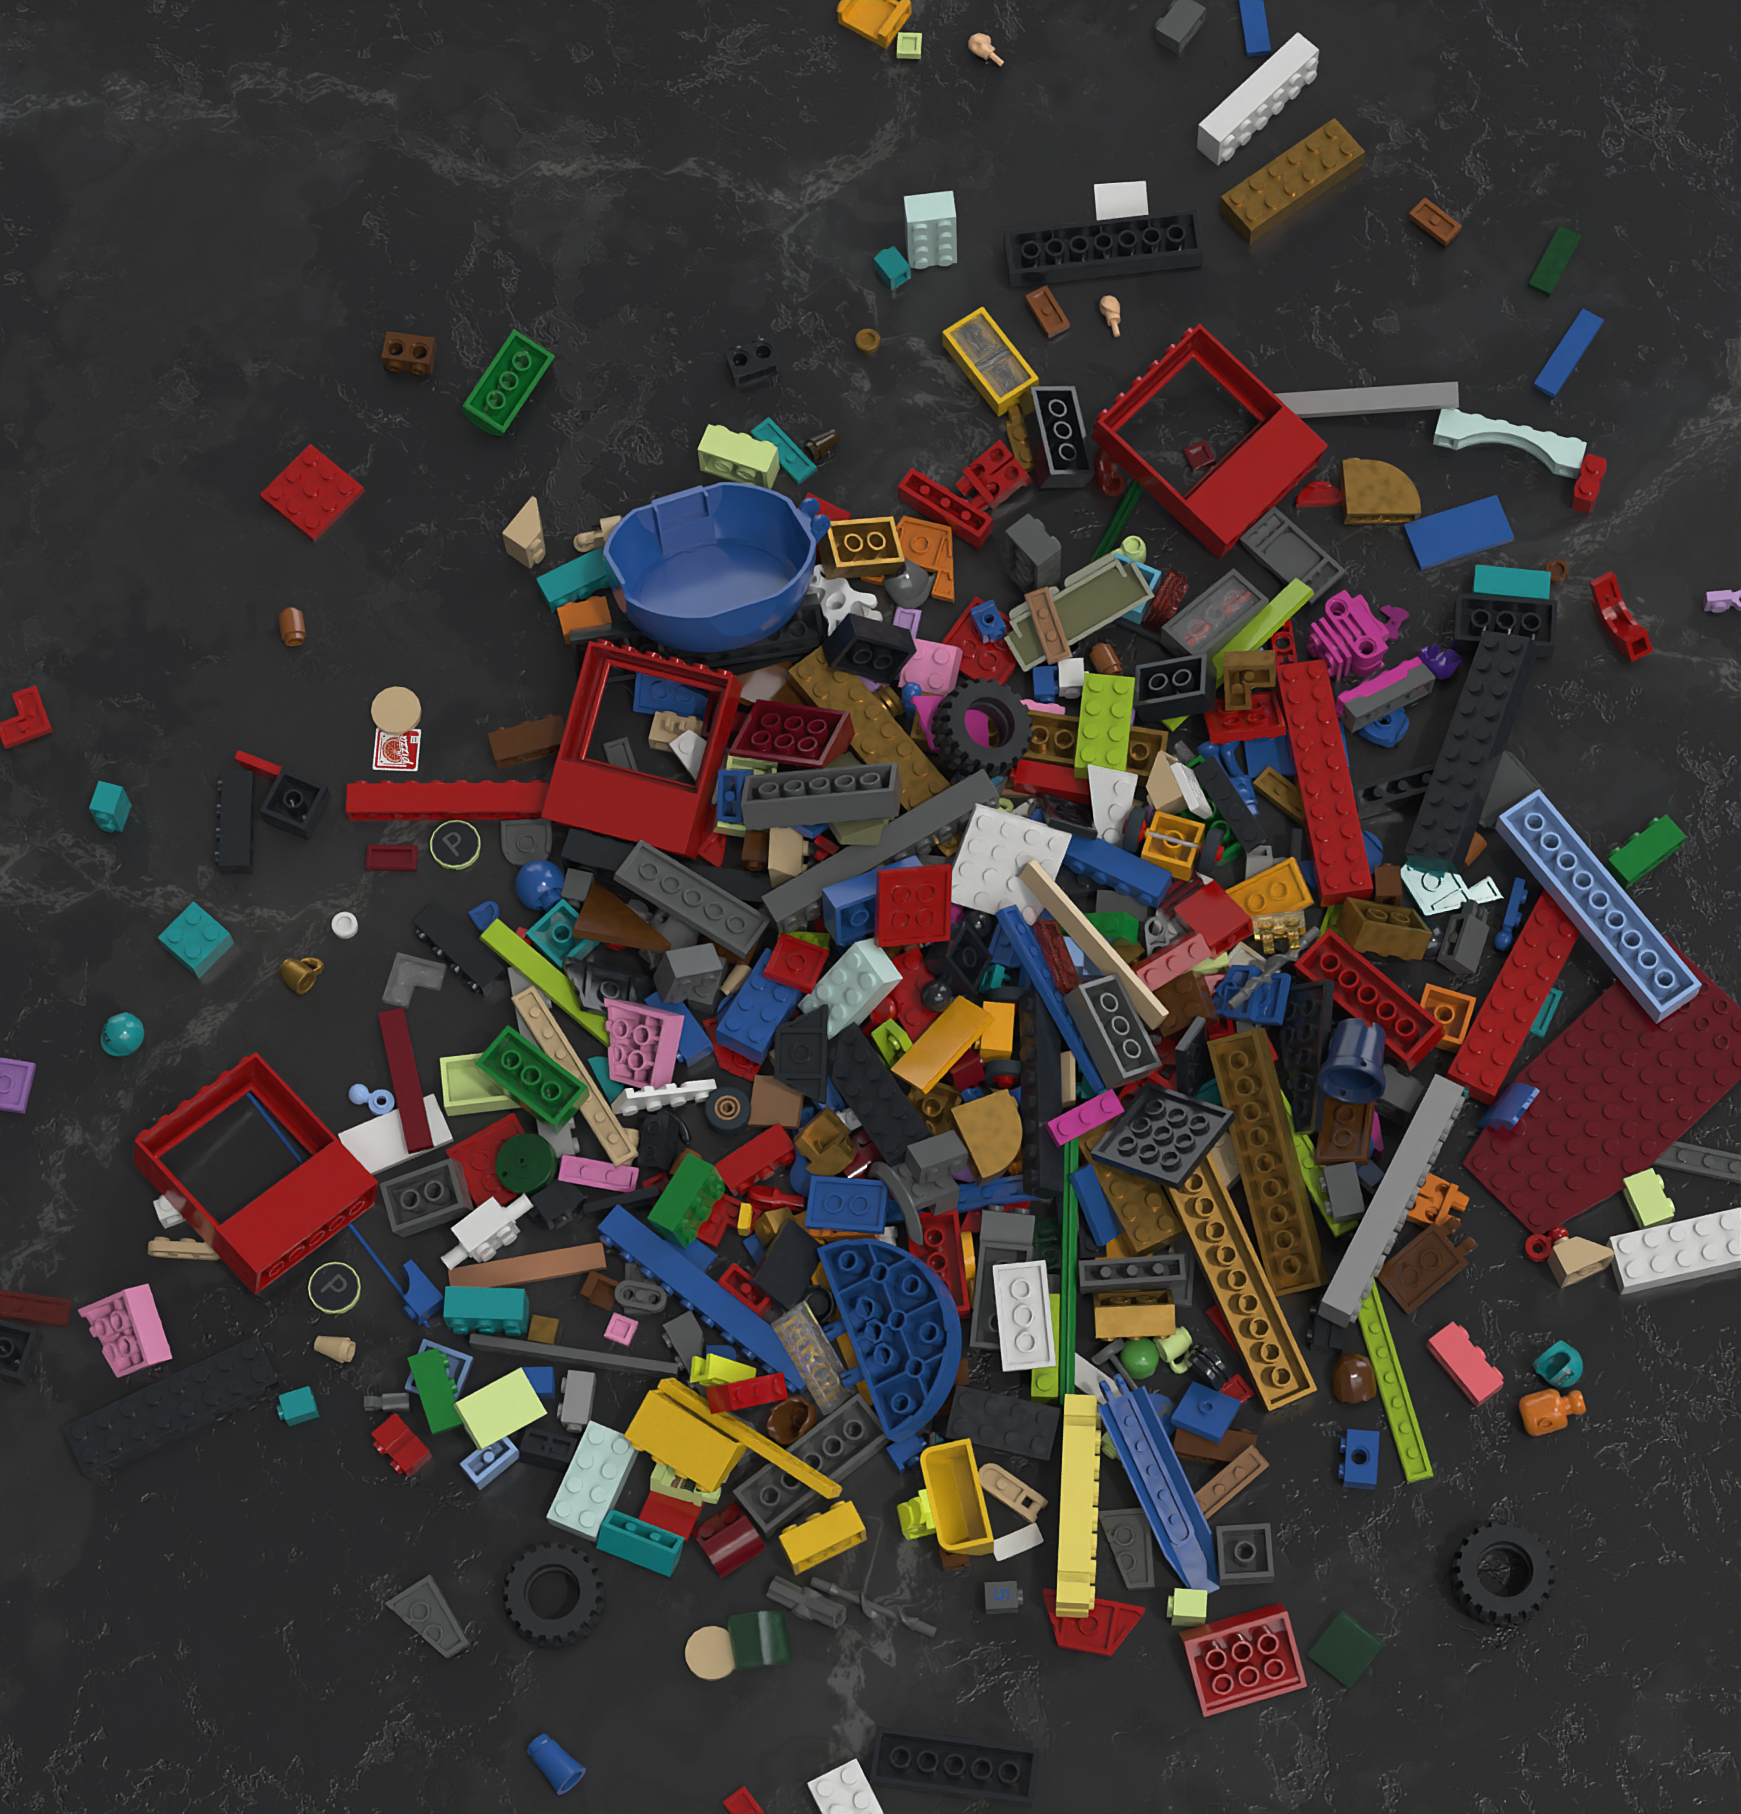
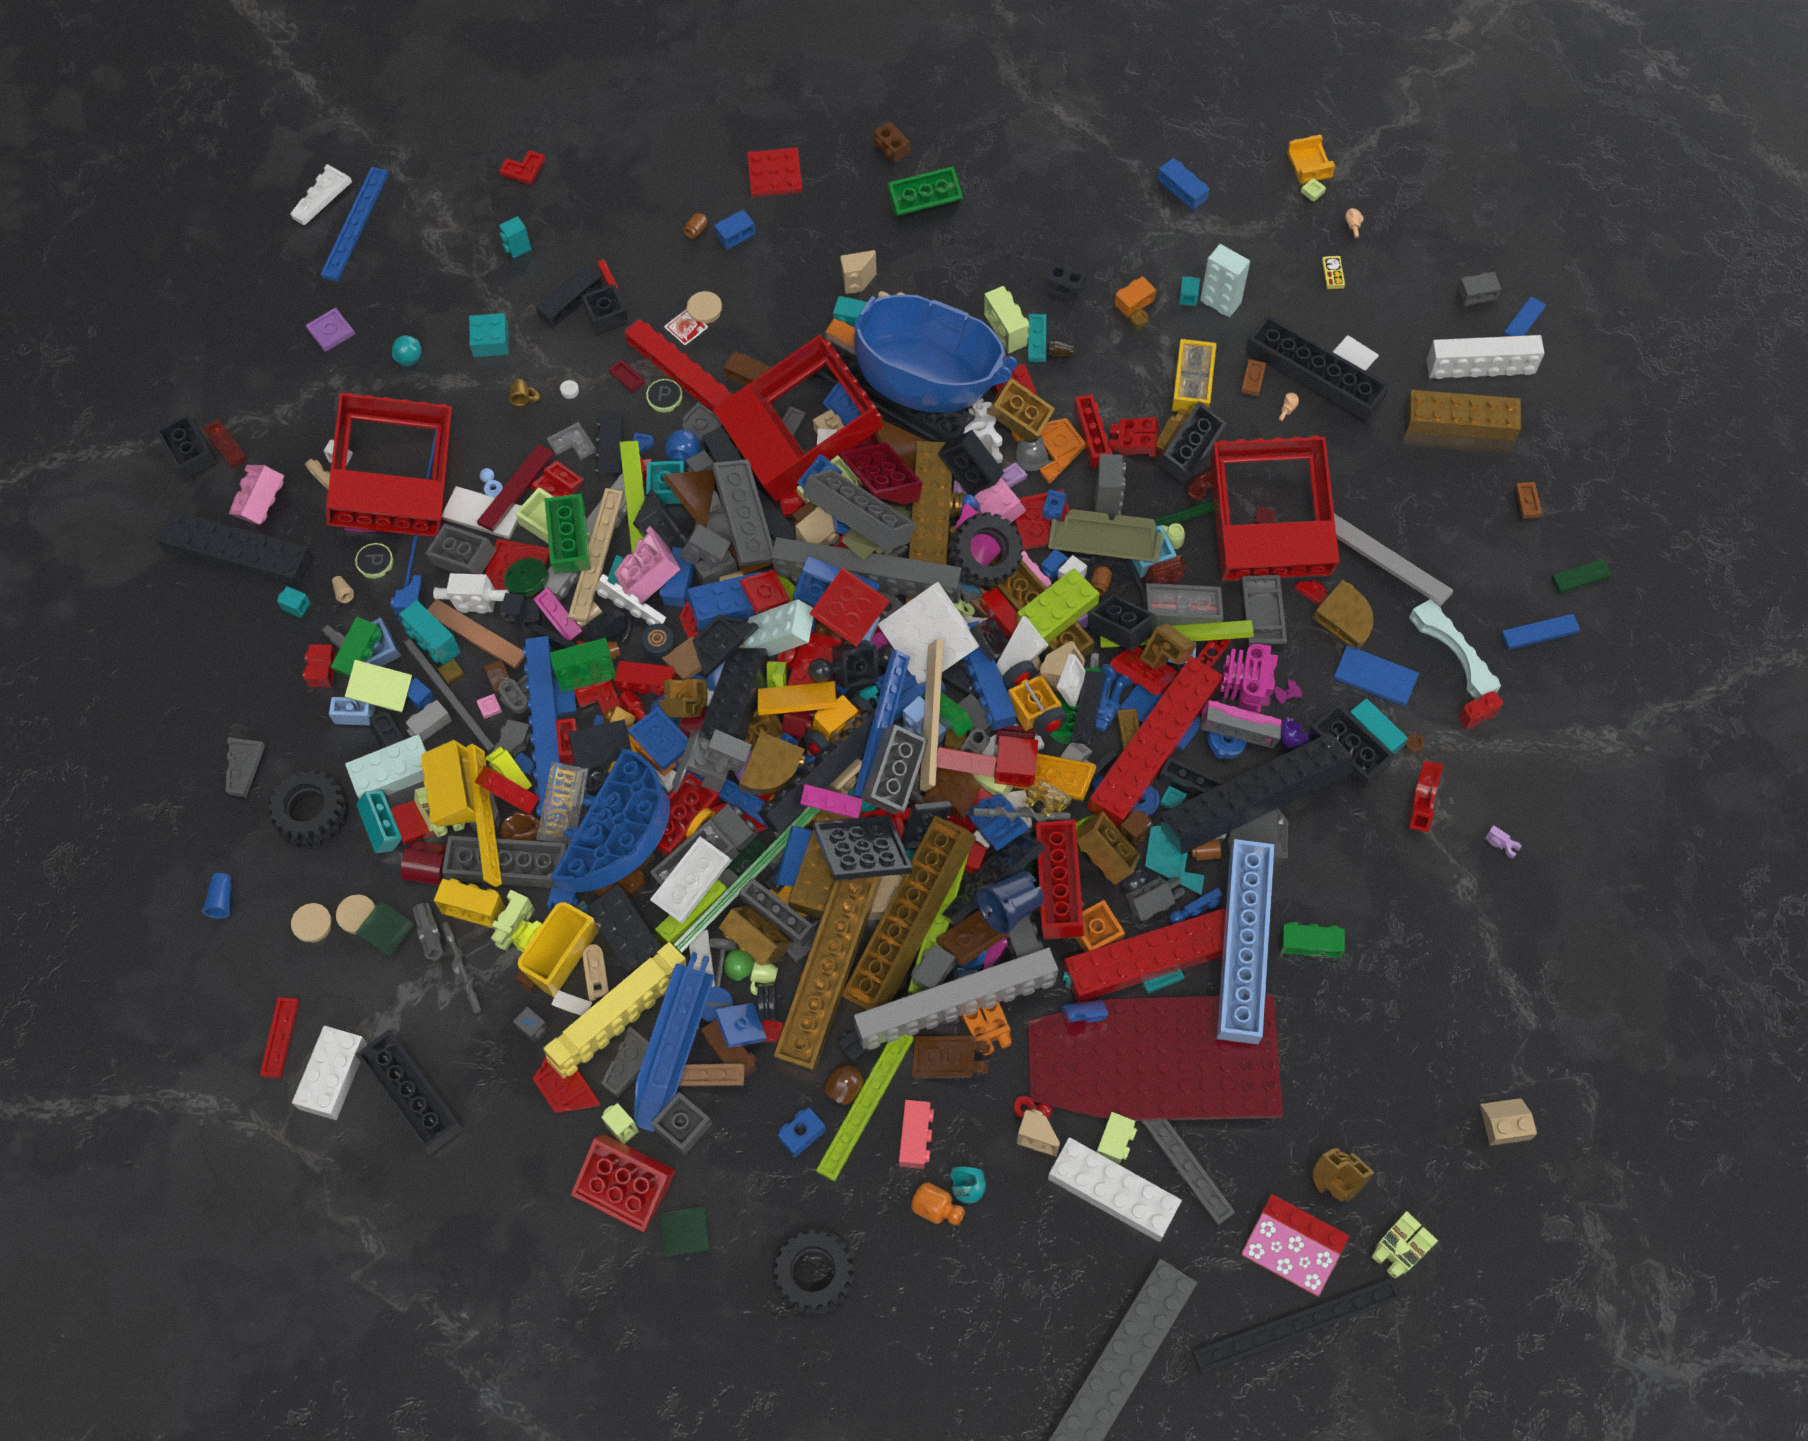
camera: 40 degrees right, 5 degrees down
(339, 595) = (735, 229): none -> blue brick
(442, 1036) = (558, 481): none -> red slope
(676, 1703) = (311, 923): none -> tan tile
(745, 1219) = (604, 702): yellow tile -> none
(769, 148) = (1183, 183): none -> blue brick
(842, 320) = (1135, 296): none -> orange brick
(884, 1526) = (517, 910): none -> yellowish green hips
(1016, 125) = (1333, 272): none -> tile
(1048, 625) = (1083, 532): medium nougat tile -> none
(1057, 955) = (906, 701): clear red plate -> none
(1388, 826) = (1172, 798): none -> teal plate

